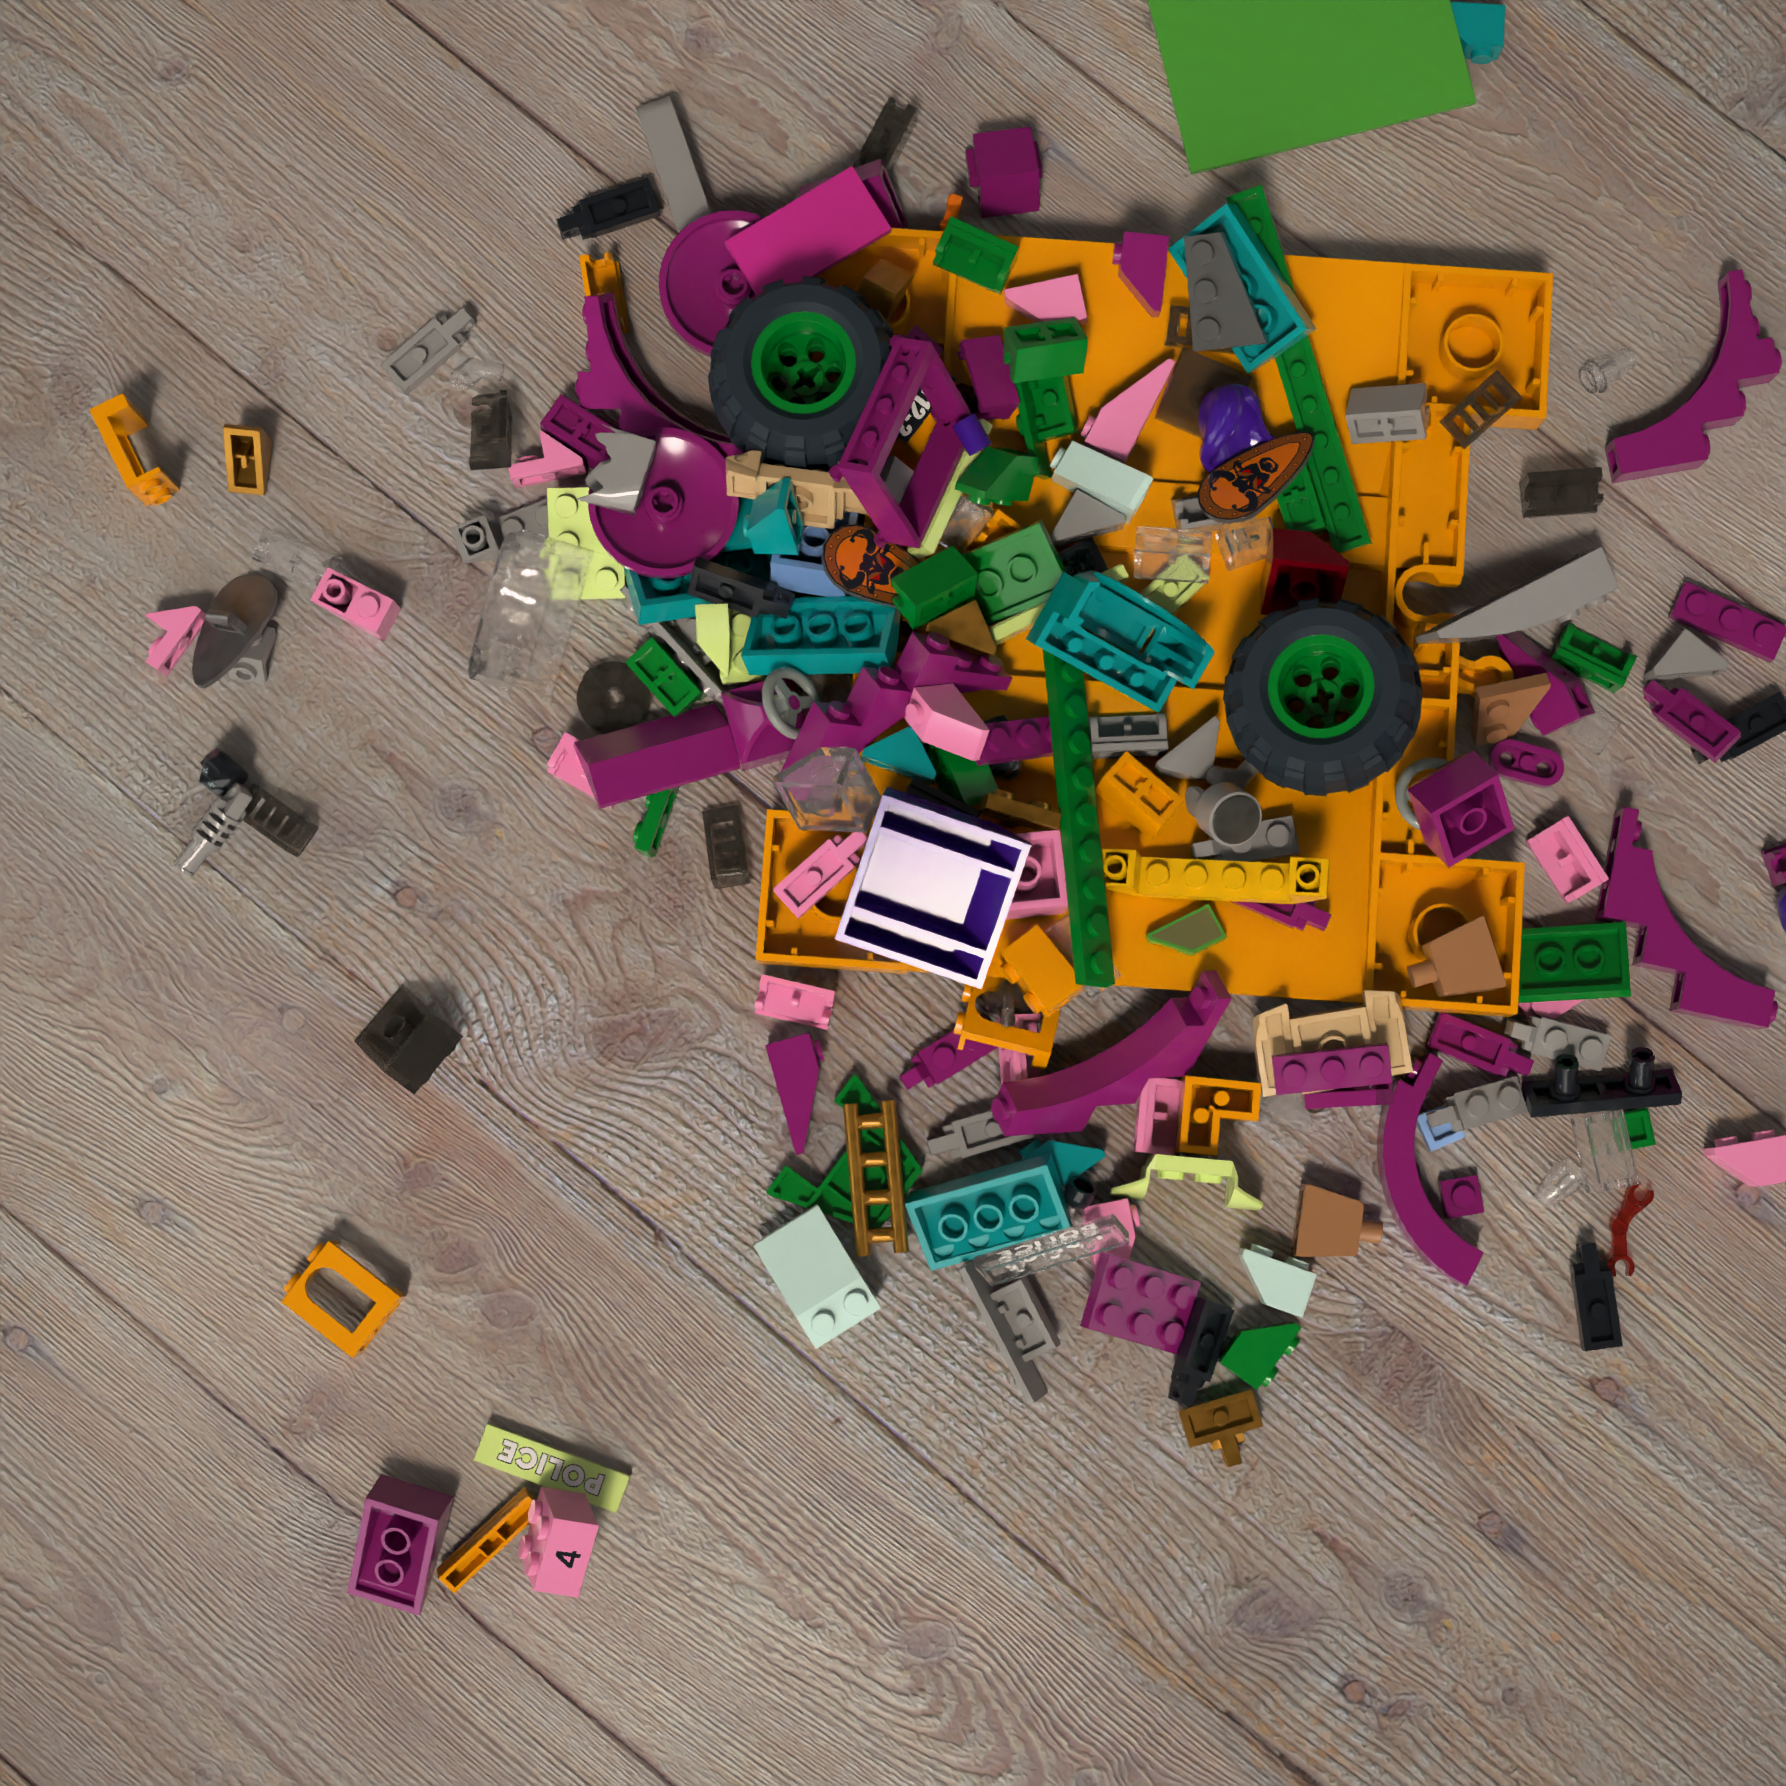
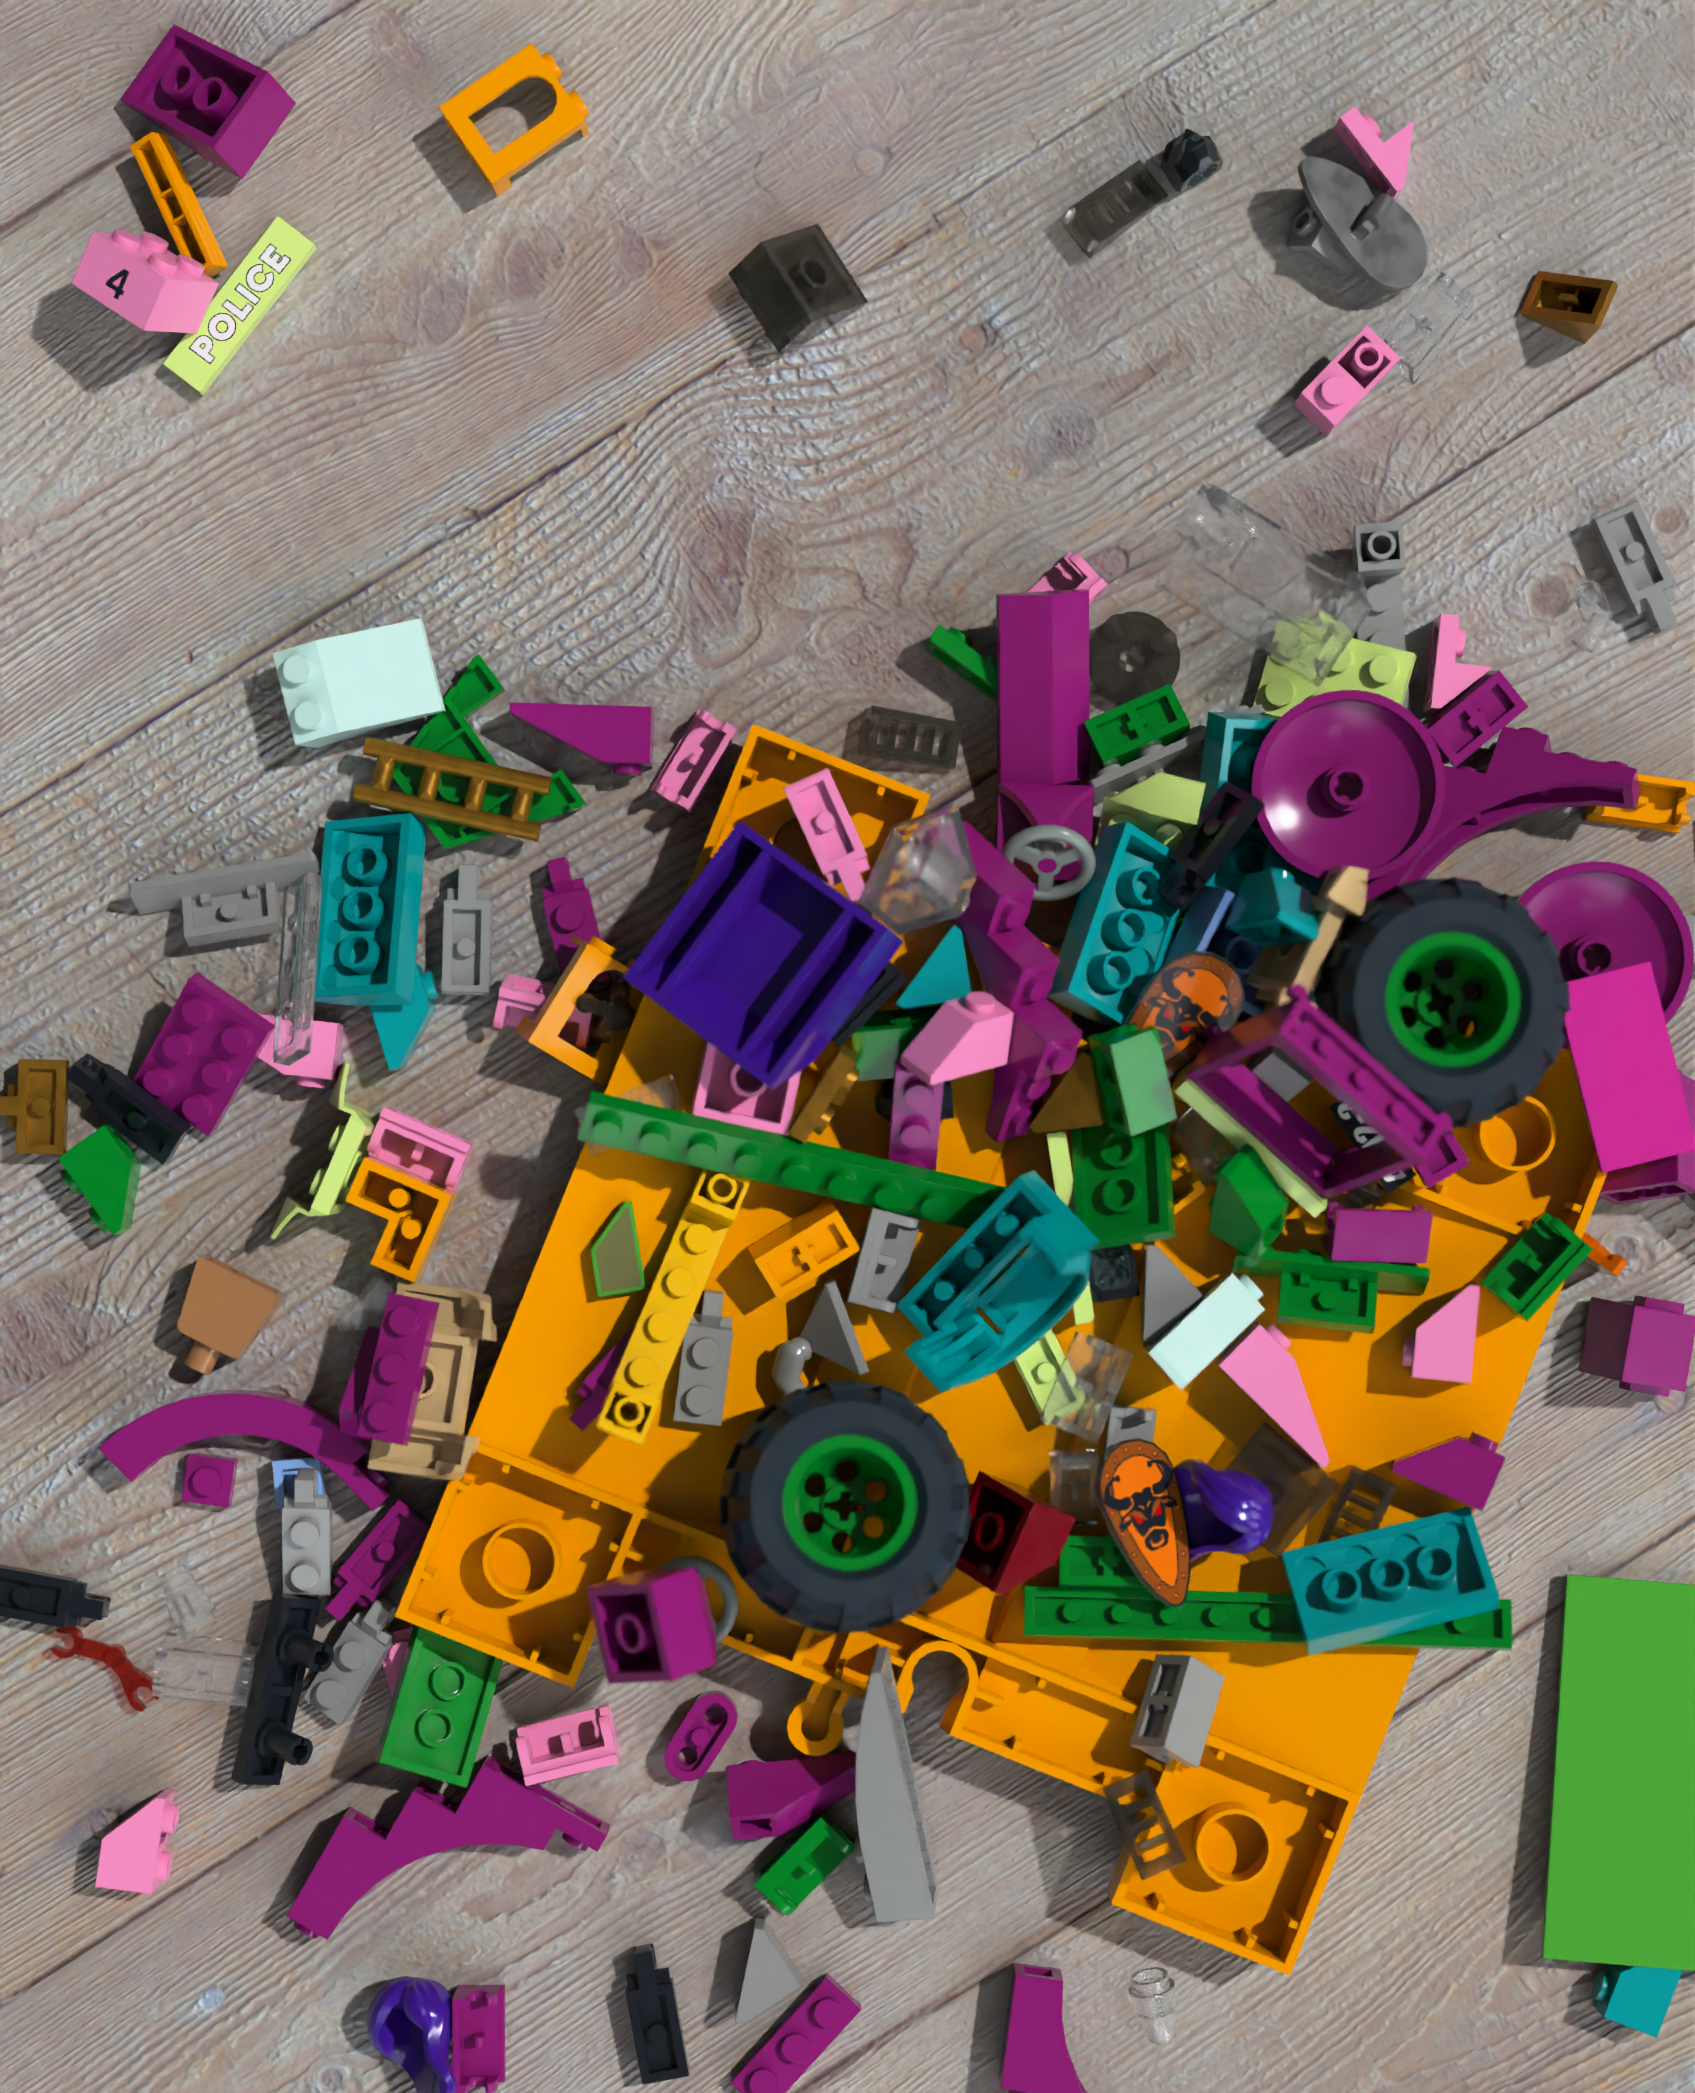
camera: 105 degrees right, 5 degrees up
(116, 421) = (1659, 150): light orange panel -> none
(214, 828) = (1125, 131): light grey hinge -> none
(491, 432) = (1507, 609): clear smoke hinge -> none
(622, 478) = (1393, 743): light grey piece -> none
(885, 287) = (1528, 1138): pearl gold slope -> none
(972, 434) = (1307, 1185): dark purple hinge -> none
(1040, 972) = (626, 1057): light orange brick -> none
(1045, 349) = (1387, 1311): green hinge -> none
(1079, 1193) = (354, 1023): black hinge -> none
(1158, 1049) = (479, 1114): magenta arch -> none
(1218, 299) = (1382, 1545): dark grey wing -> none
(1225, 812) = (745, 1342): piece -> none
(1278, 1283) = (175, 1229): light aqua slope -> none
(1460, 962) = (476, 1566): medium nougat torso -> none
(1505, 706) = (773, 1732): medium nougat wing -> none
(1560, 492) = (1019, 1893): clear smoke hinge -> none
(1639, 1128) = (220, 1720): green tile -> none
(1692, 720) = (686, 1954): magenta hinge -> none

